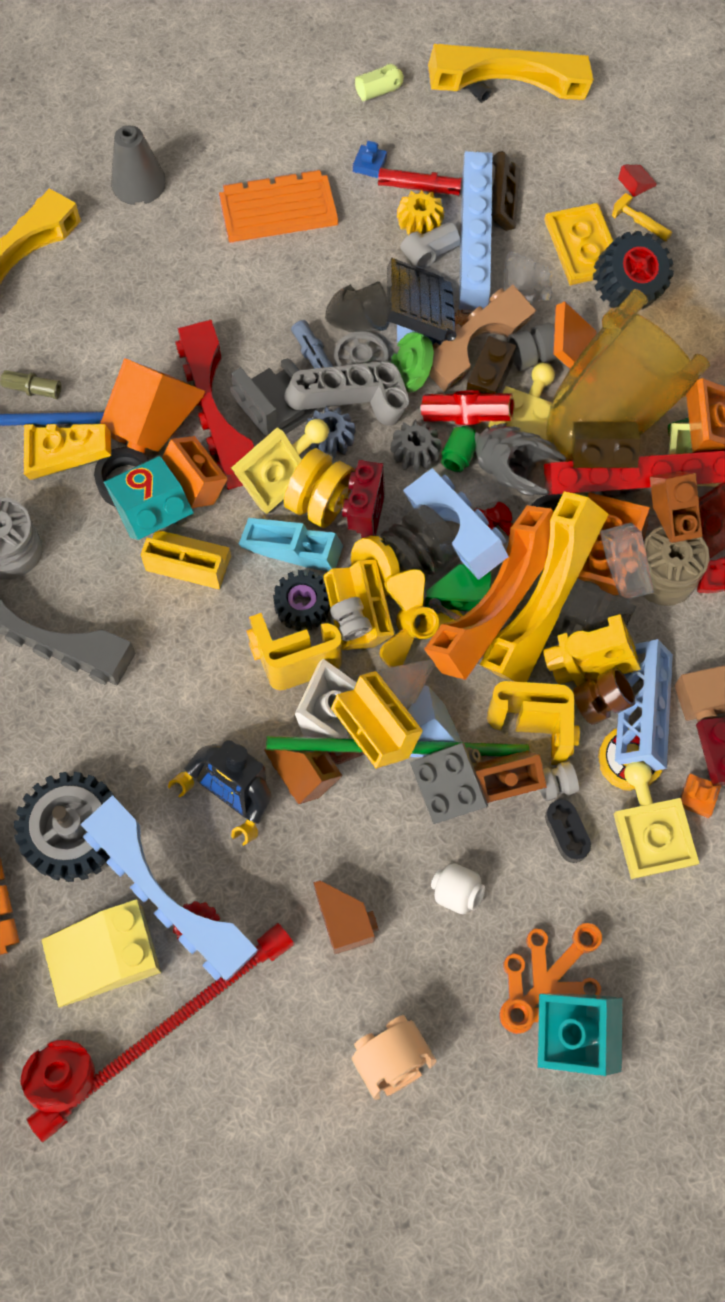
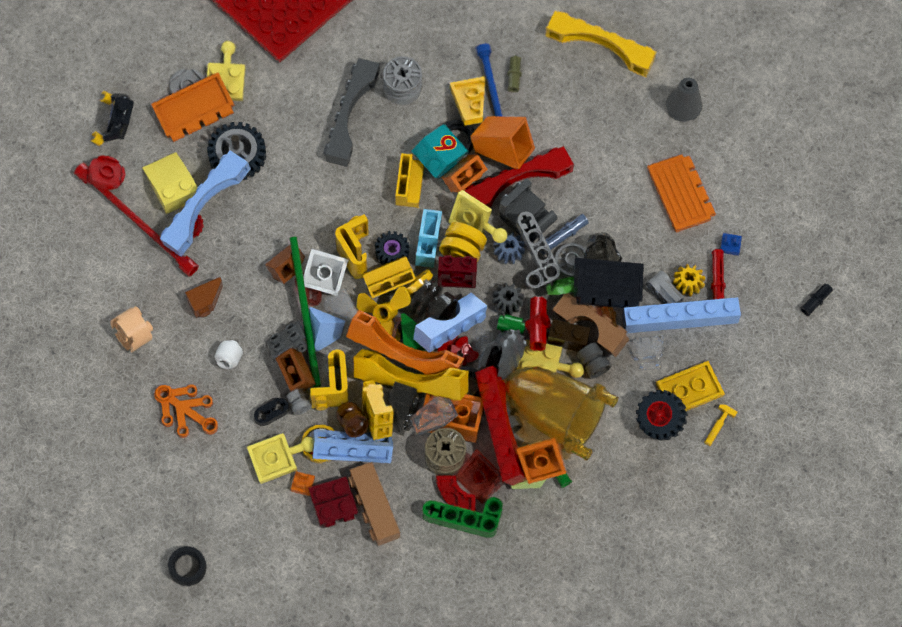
camera: 80 degrees right, 0 degrees up
(234, 779) = (273, 229): black torso -> none
(351, 618) = (373, 269): light grey wheel -> none
(377, 721) = (312, 291): yellow piece -> none
(379, 82) = (799, 240): yellowish green piece -> none
(505, 191) = (718, 331): dark brown plate -> none
(560, 74) = (809, 283): yellow arch -> none
(571, 334) = (604, 374): orange tile -> none
(580, 1033) = (156, 423): teal slope -> none
(605, 445) = (505, 392): dark brown brick -> none
(635, 179) = (752, 419): red slope -> none
(677, 505) = (475, 441): dark orange slope -> none

